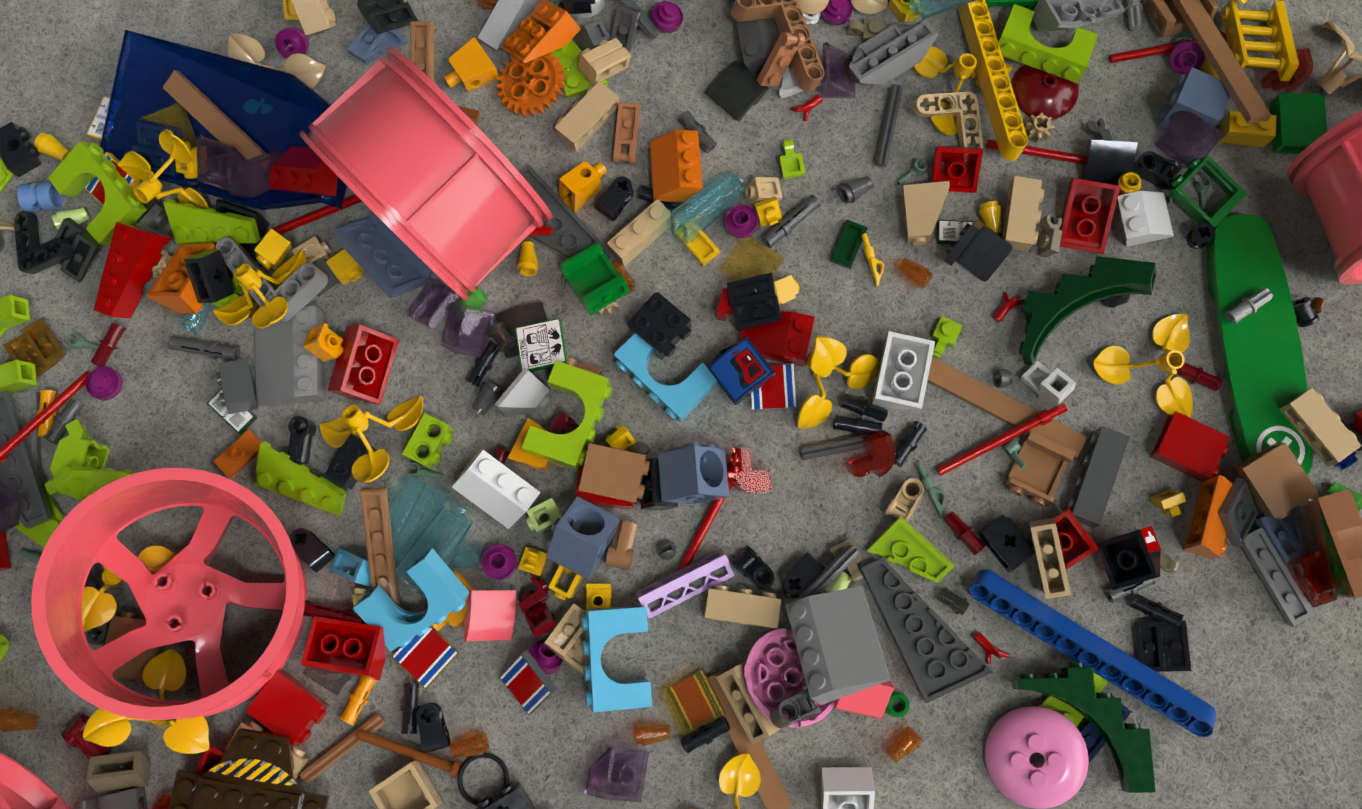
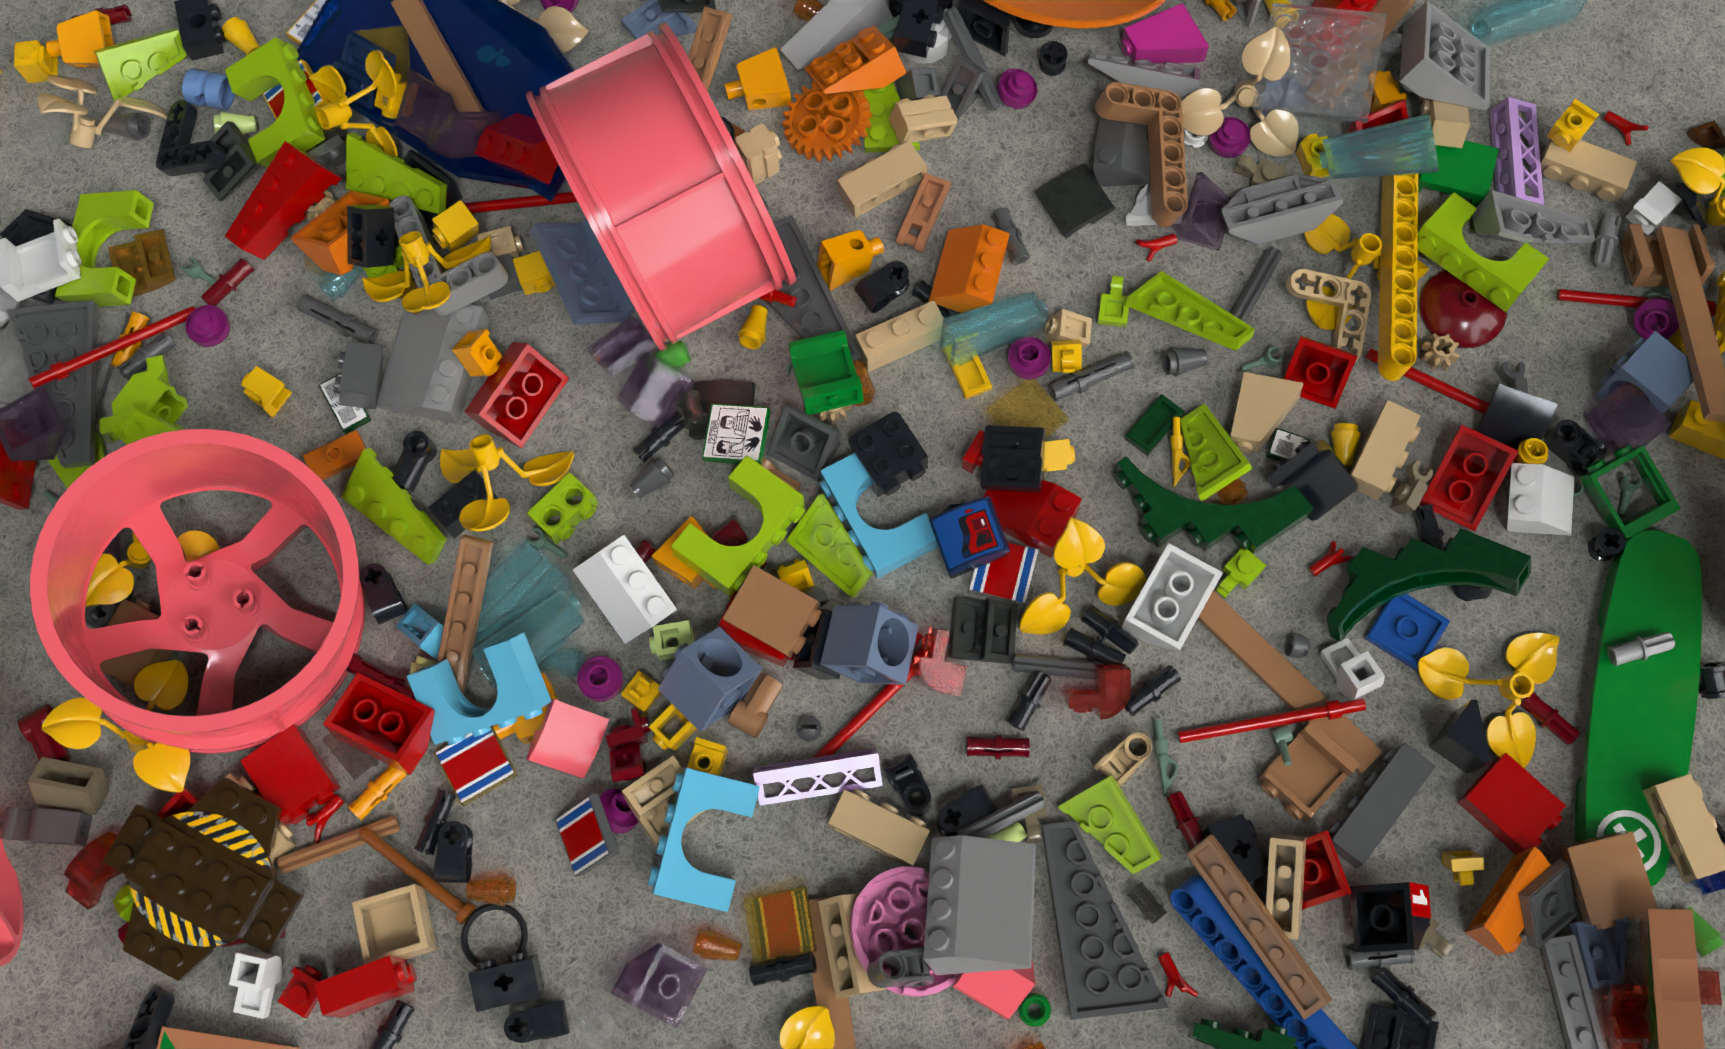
camera: 15 degrees right, 5 degrees down
(167, 420) = (265, 390): none -> yellow window
(322, 731) = (323, 815): none -> red bar
(489, 121) = (759, 152): none -> tan brick
(524, 396) = (695, 488): light grey slope -> none
(593, 336) = (803, 442): none -> dark grey slope
(639, 410) = (829, 547): none -> lime wing
(771, 436) = (983, 630): none -> pearl dark grey slope
(780, 58) = (1138, 175): nougat plate -> none
(810, 520) = (998, 747): none -> dark red pin
(822, 479) = (1029, 700): none -> black axle
(847, 150) = (1184, 308): none -> lime wing
(898, 252) = (1212, 452): none -> lime wing
(909, 307) = (1207, 524): none -> dark green arch
(1041, 594) = (1259, 927): none -> medium nougat tile
(1071, 262) = (1428, 527): none -> black pin
(1077, 342) = (1407, 630): none -> blue tile
(1143, 410) = (1464, 739): none -> black slope

